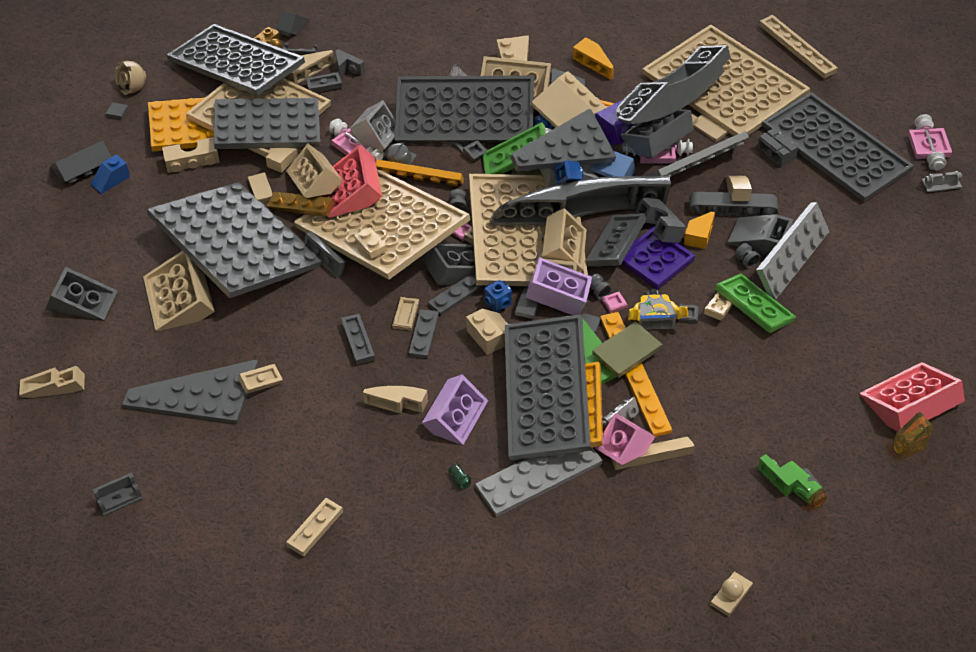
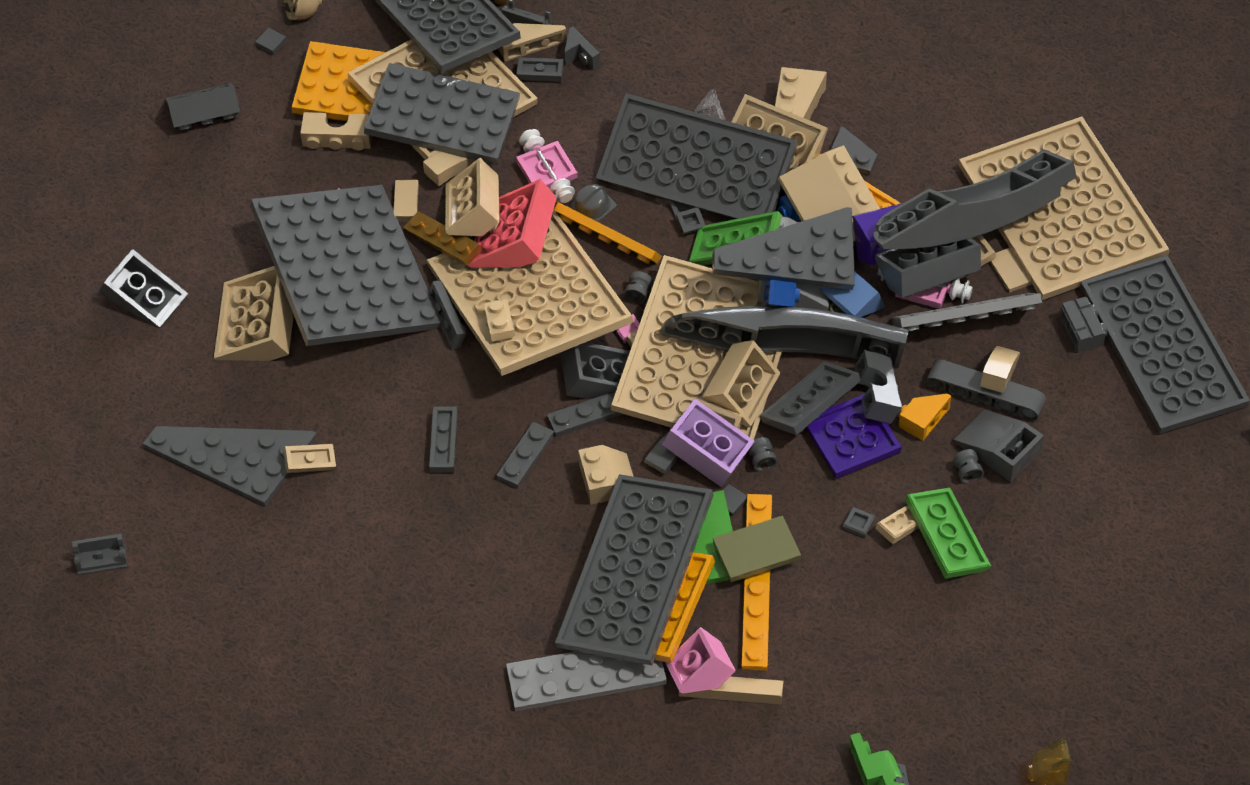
camera: 20 degrees right, 5 degrees up
(52, 383) = (74, 393): tan slope -> none
(110, 174) = (231, 131): blue slope -> none
(314, 527) = (303, 660): tan plate -> none
(375, 126) = (574, 155): light grey slope -> none
(396, 398) = (458, 530): tan slope -> none
(405, 314) = (514, 422): tan tile -> none
(455, 410) = (520, 566): lavender slope -> none
(462, 480) = (493, 654): clear green pin -> none
(498, 296) = (632, 432): blue brick -> none
(592, 56) = (899, 119): light orange slope -> none
(614, 302) = (774, 480): bright pink tile -> none
(627, 409) = (720, 627): light grey hinge -> none
(657, 311) = (815, 508): torso -> none
(793, 250) = (1026, 476): light grey plate -> none
(798, 46) = (1186, 181): tan plate -> none
(914, 391) = (1085, 712): coral slope -> none

